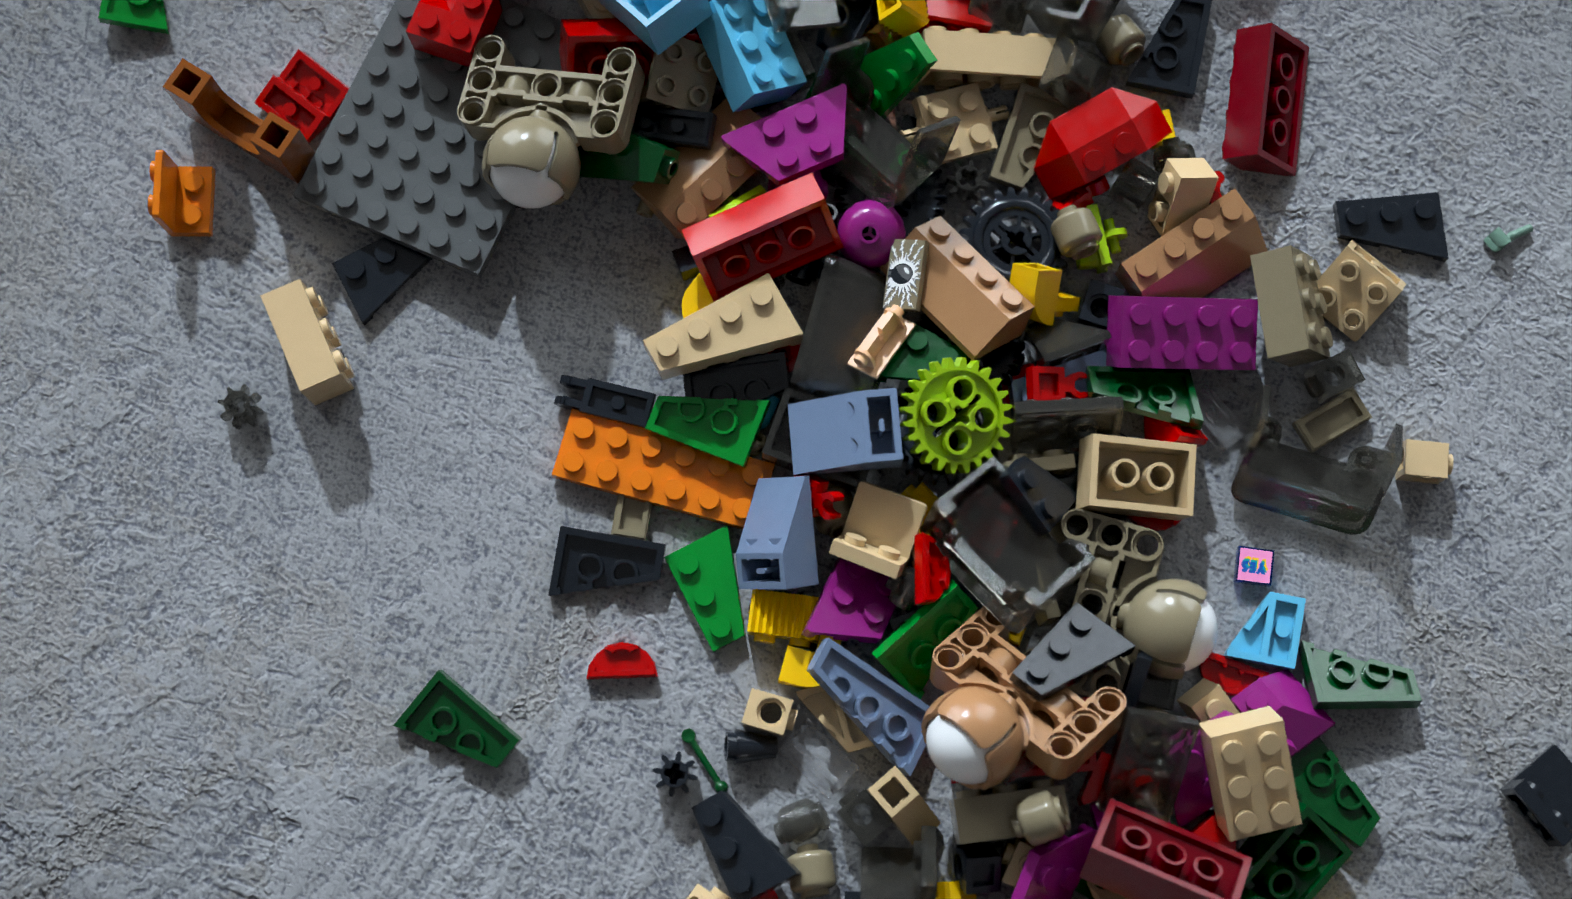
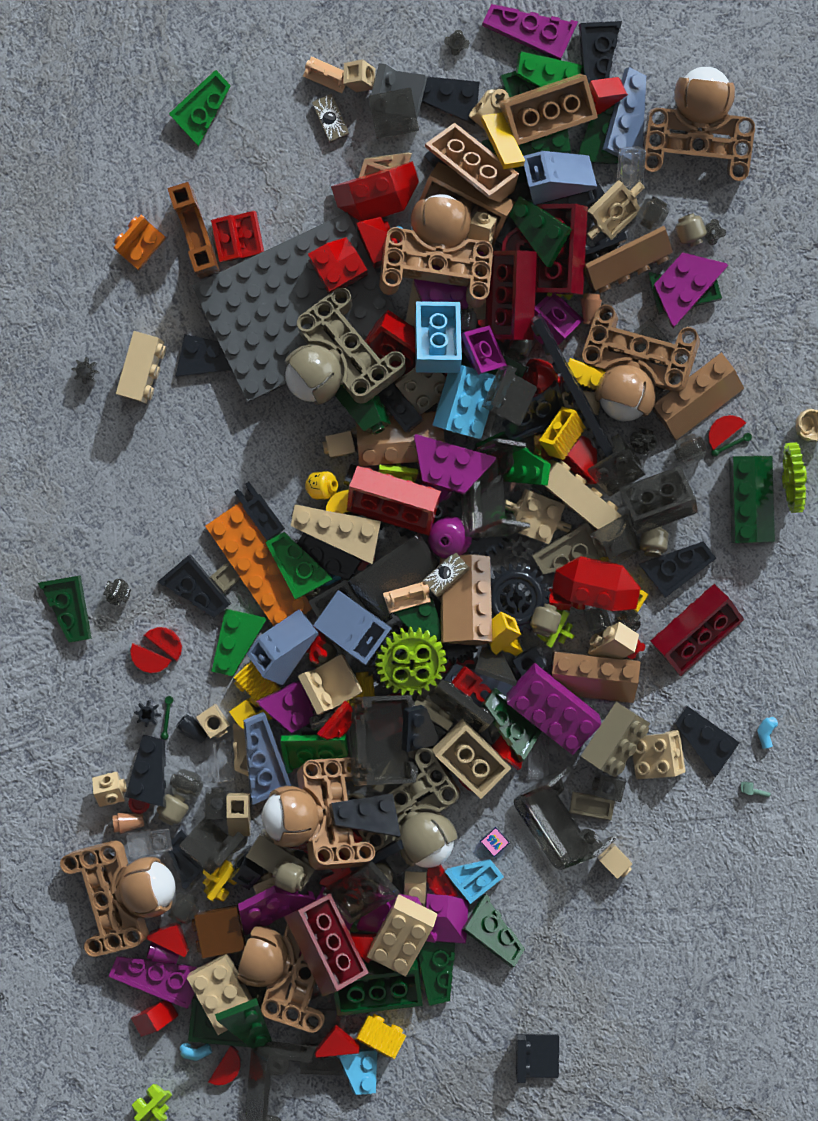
camera: 40 degrees right, 10 degrees up
(506, 649) = (117, 592): none -> clear smoke gear
(619, 706) = (148, 660): none -> red tile
(638, 237) = (339, 444): none -> tan brick
(657, 303) = (321, 485): none -> yellow head
(1454, 154) = (765, 730): none -> medium azure arm

